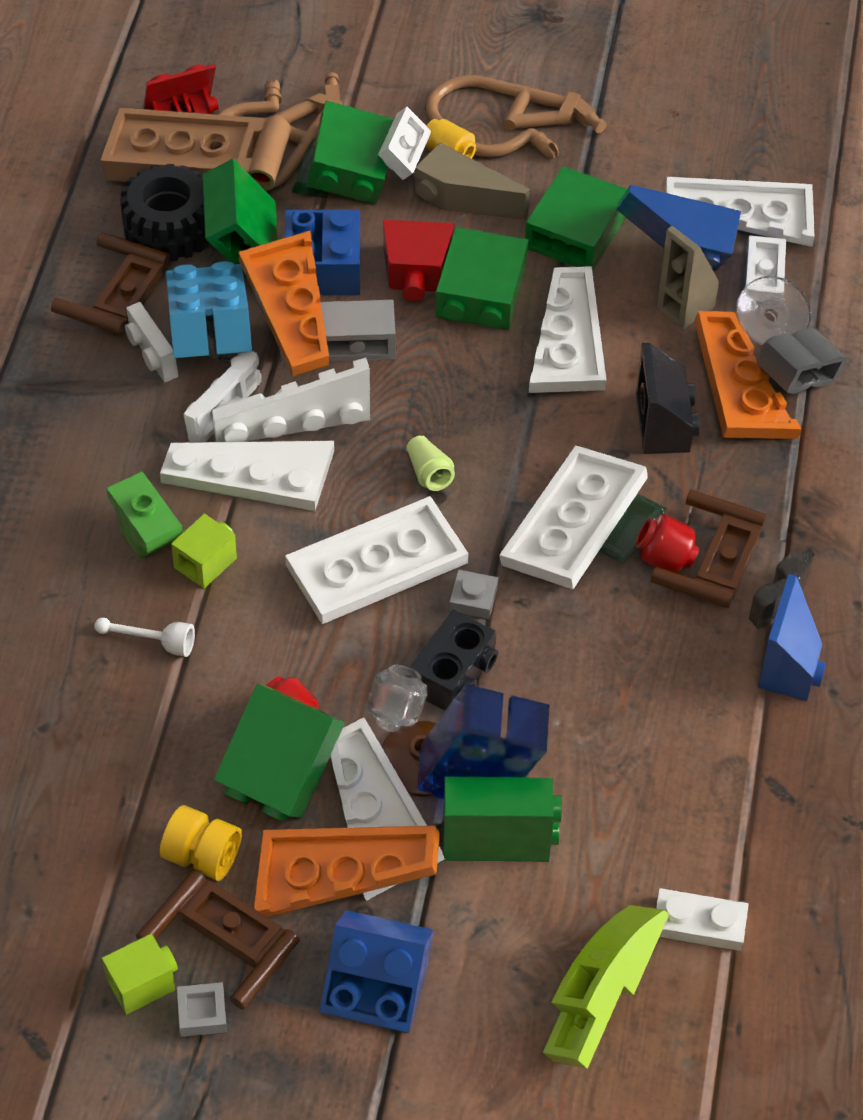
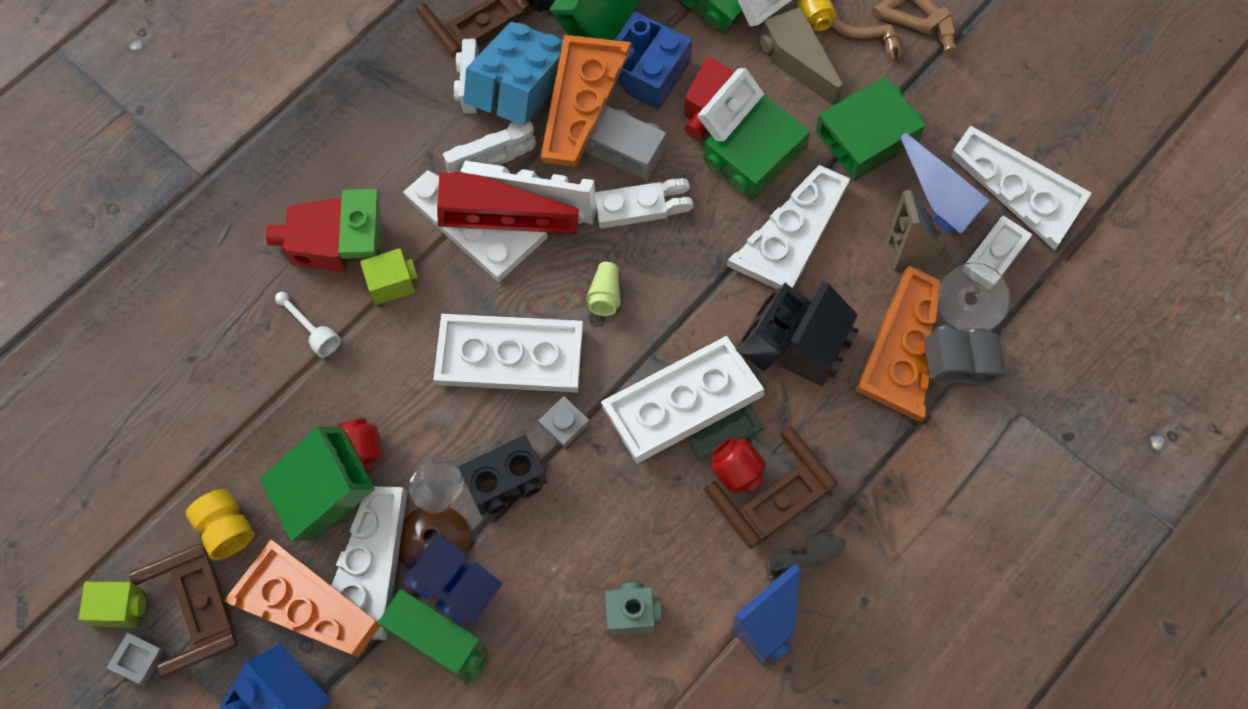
camera: 35 degrees right, 15 degrees up
(98, 550) = (310, 235): none -> red torso
(268, 435) = (488, 204): none -> red slope
(410, 376) = (641, 203): none -> white hinge
(442, 245) = (730, 104): none -> white plate
(617, 413) = (773, 327): none -> black brick
(659, 711) = (631, 610): none -> sand green brick

